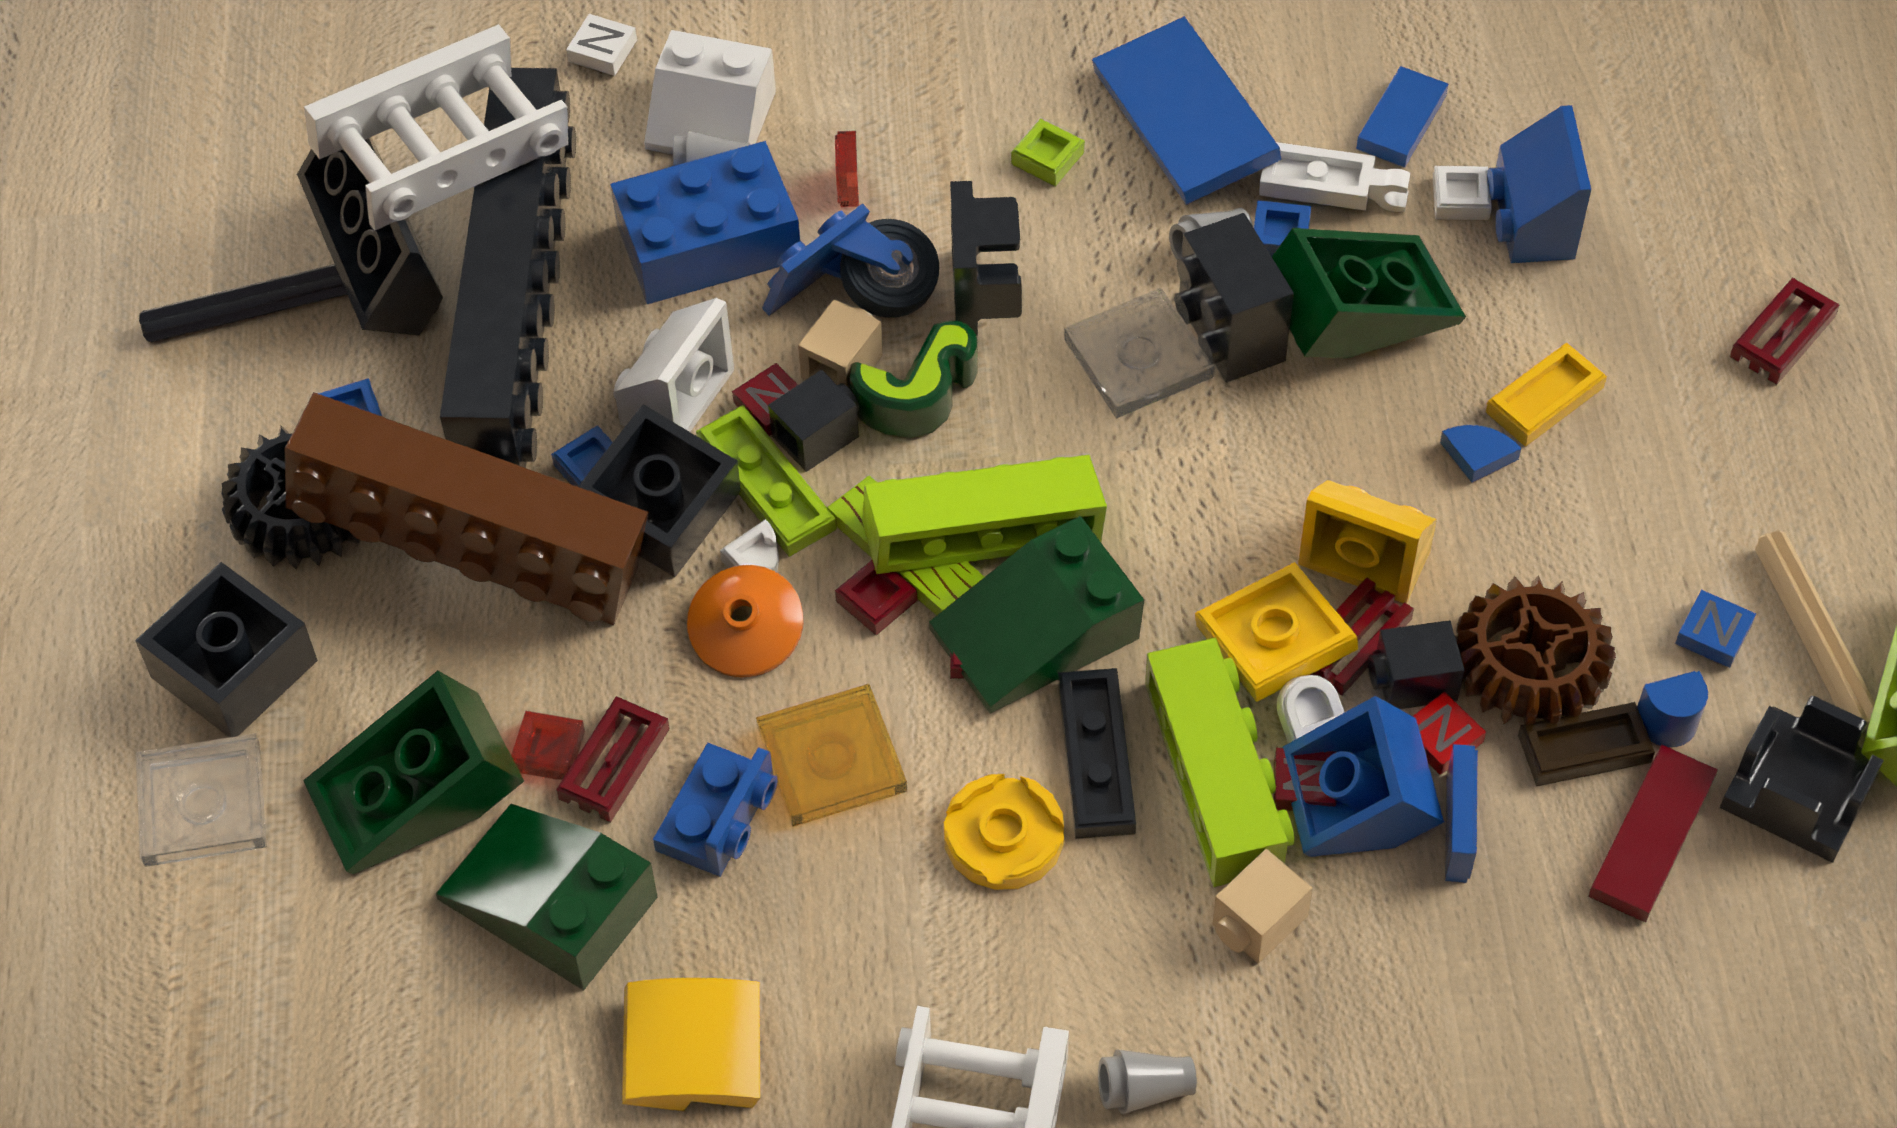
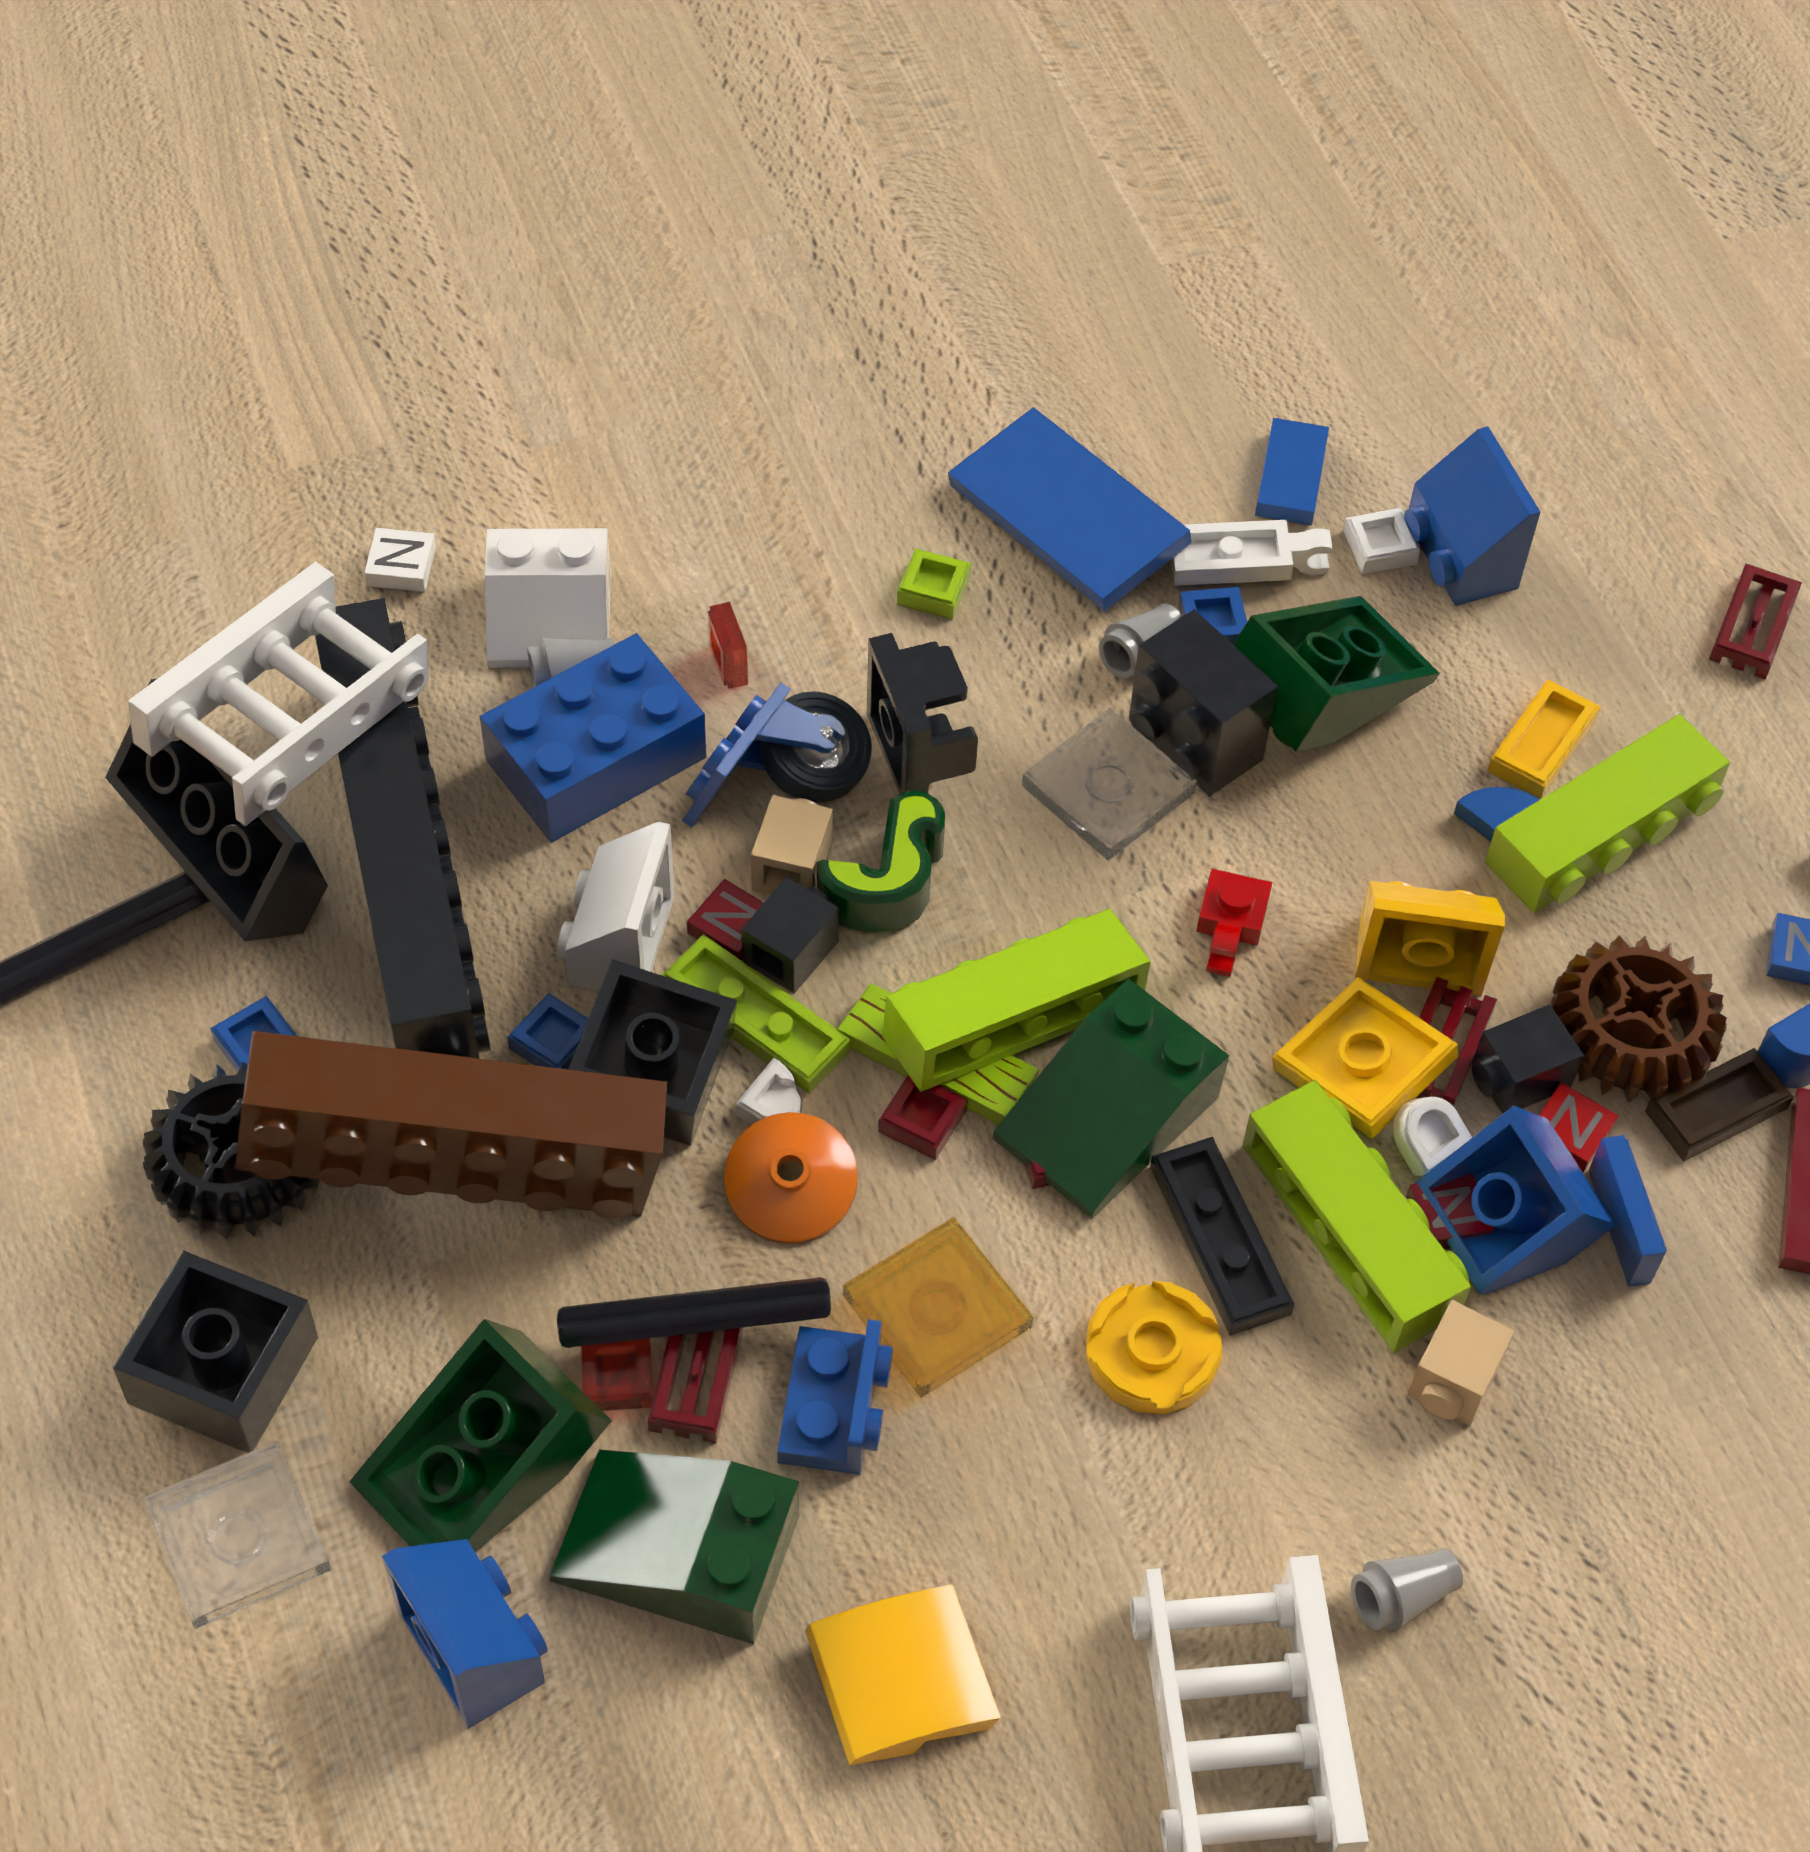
camera: 20 degrees left, 0 degrees up
(348, 912) = (465, 1625): none -> blue slope
(621, 709) = (693, 1312): none -> black axle
(1204, 484) = (1233, 914): none -> red plate
(1575, 469) = (1607, 814): none -> lime brick

